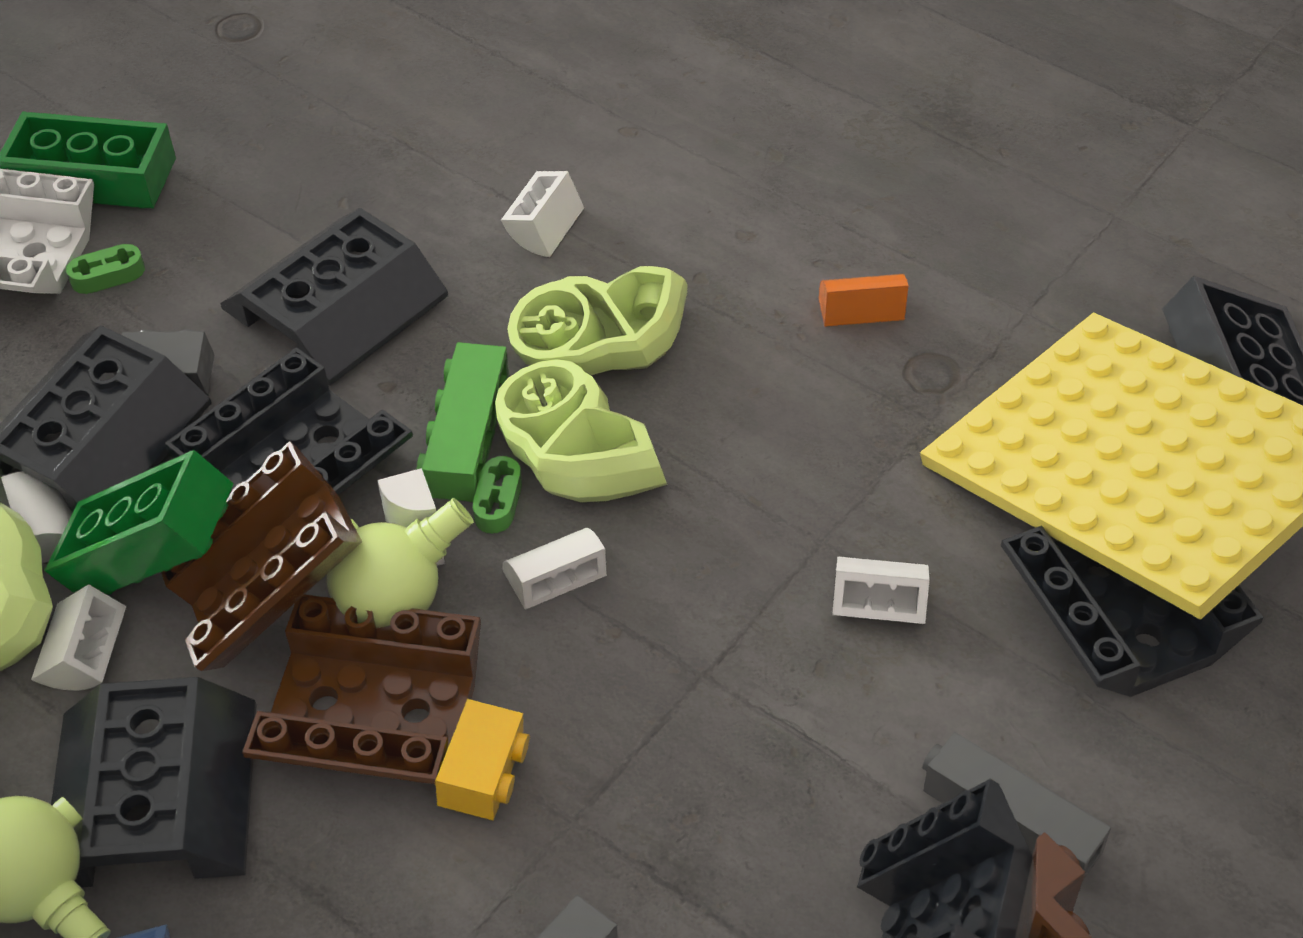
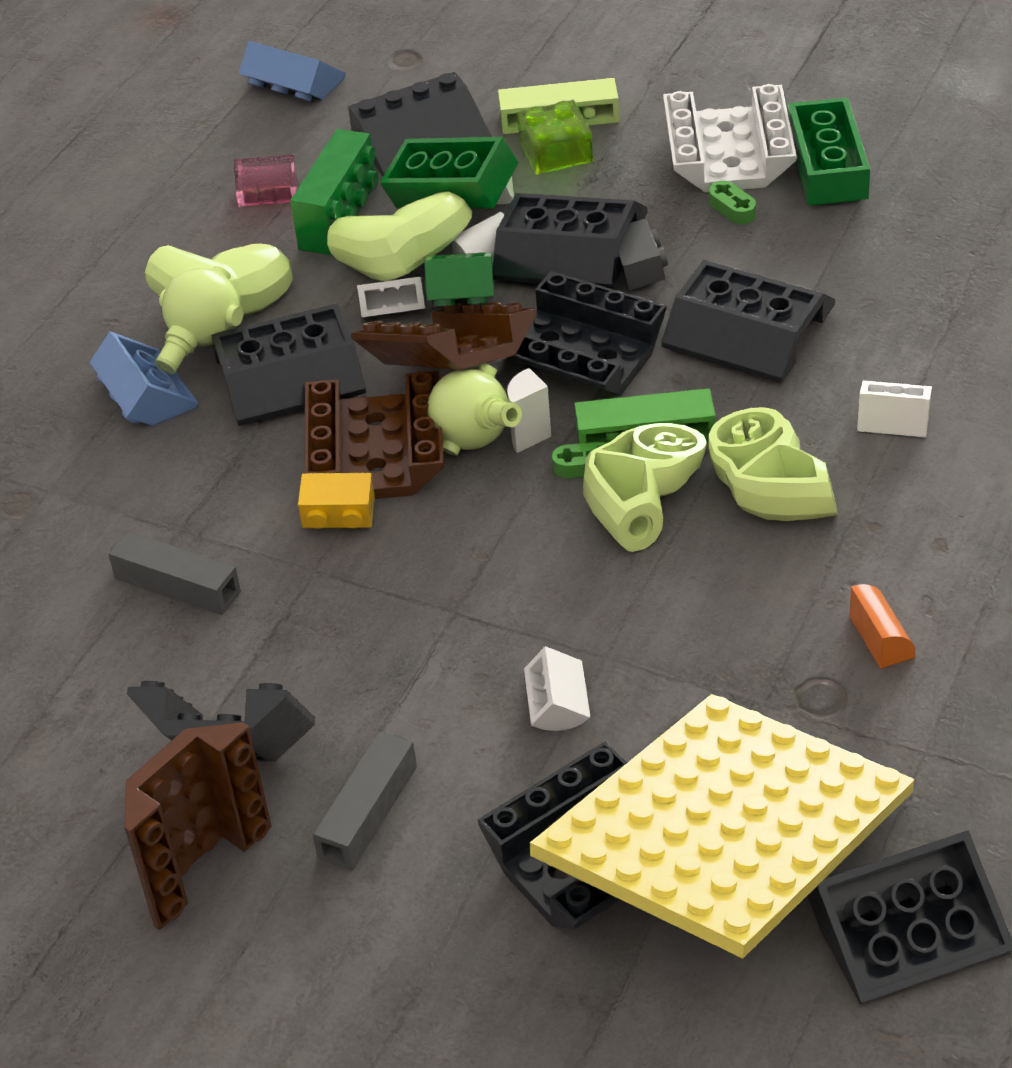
camera: 80 degrees right, 5 degrees down
(556, 567) = (521, 504): white brick -> none

